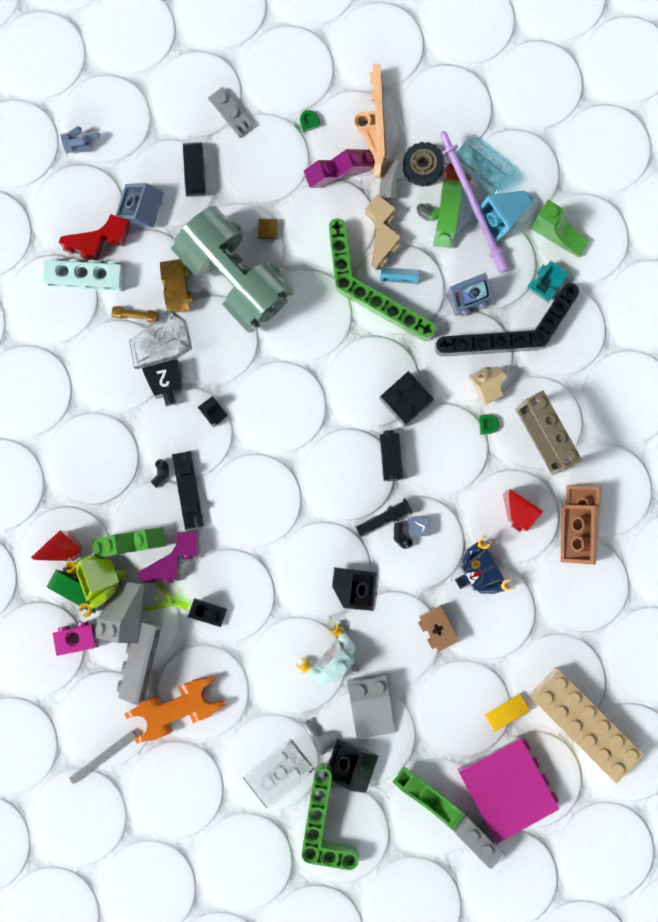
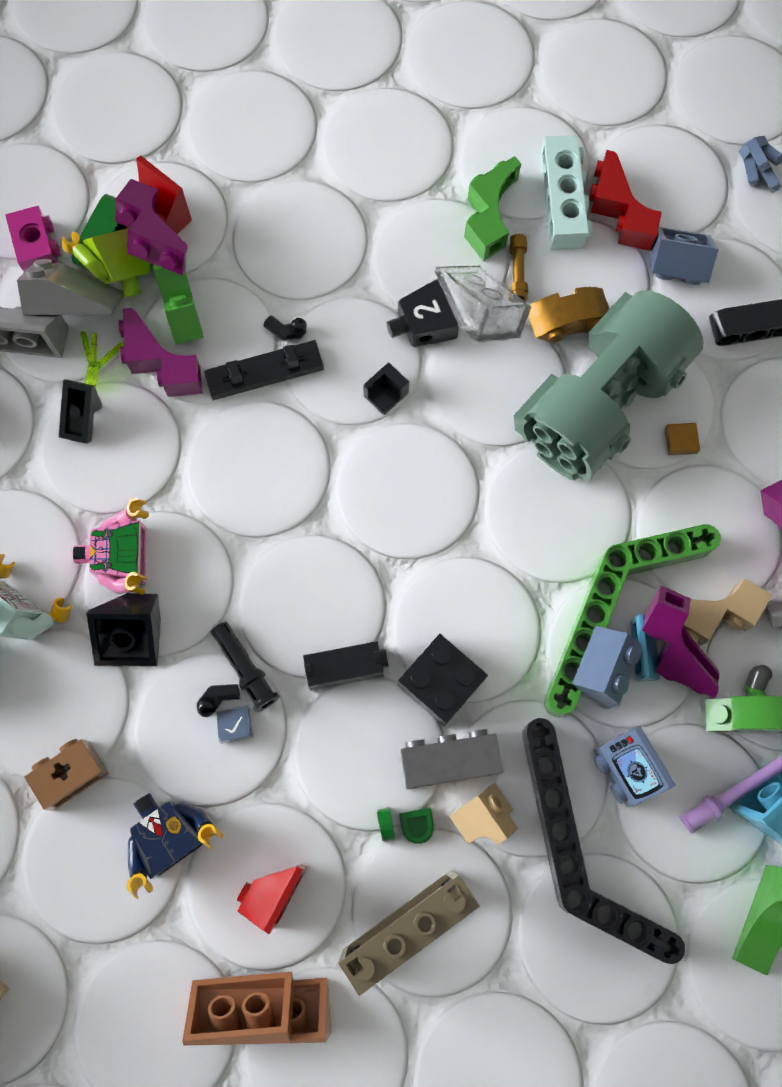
camera: 80 degrees right, 10 degrees down
(98, 551) = (147, 233): none -> magenta arch
(105, 331) = (485, 227): none -> bright green arch
(304, 591) = (118, 550): none -> torso
(407, 255) = (680, 656): none -> magenta arch
(411, 299) = (607, 666): none -> sand blue slope
(453, 400) = (450, 759): none -> flat silver brick
(486, 442) = (385, 825): none -> green tile
(549, 281) = (680, 906): teal cylinder -> none

